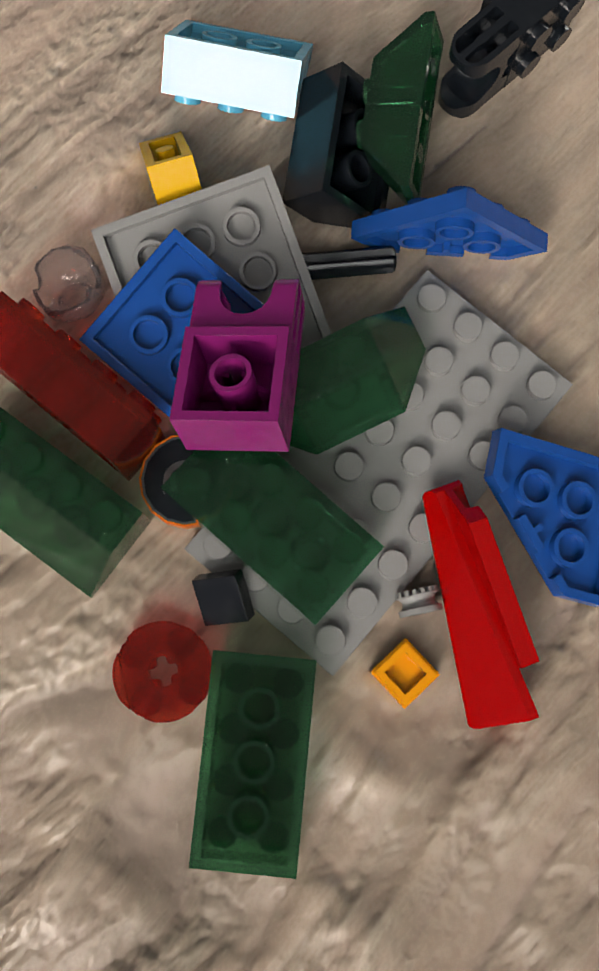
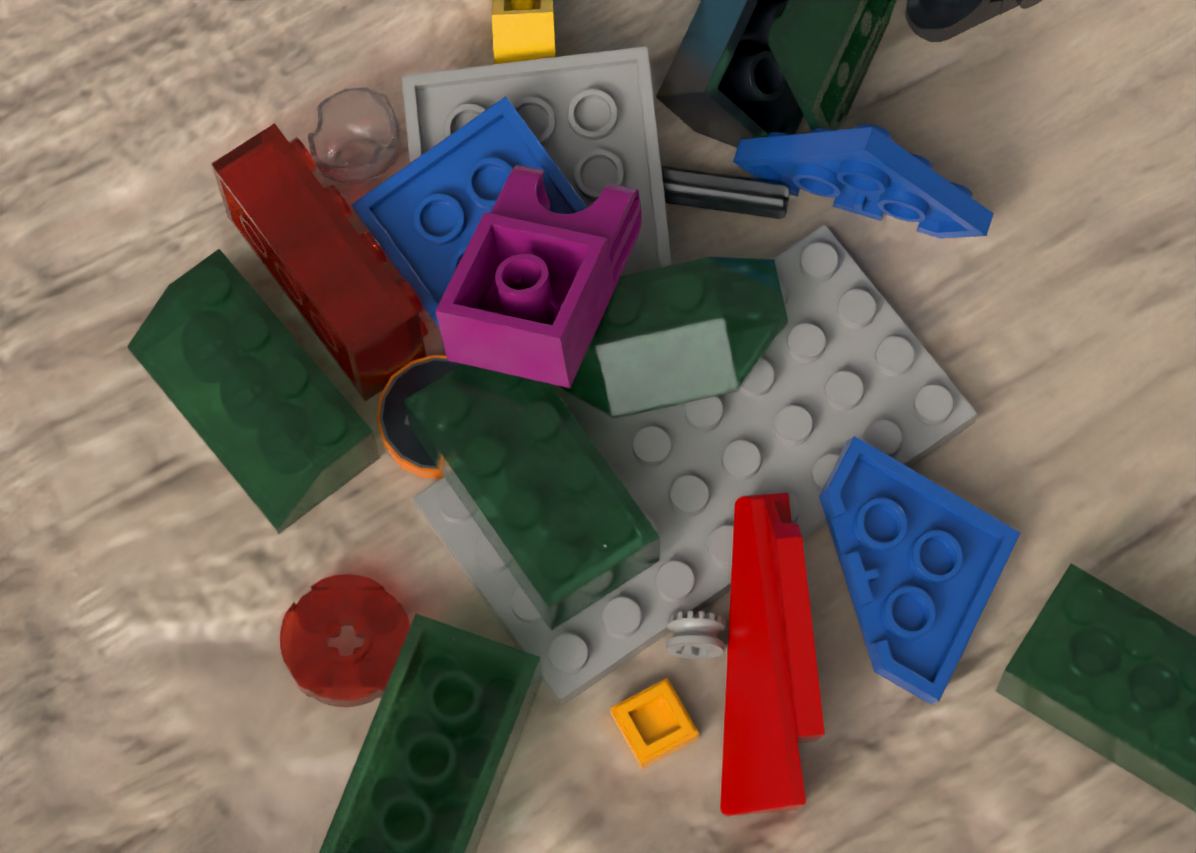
camera: 20 degrees right, 10 degrees down
(223, 597) = (446, 567): black tile -> none

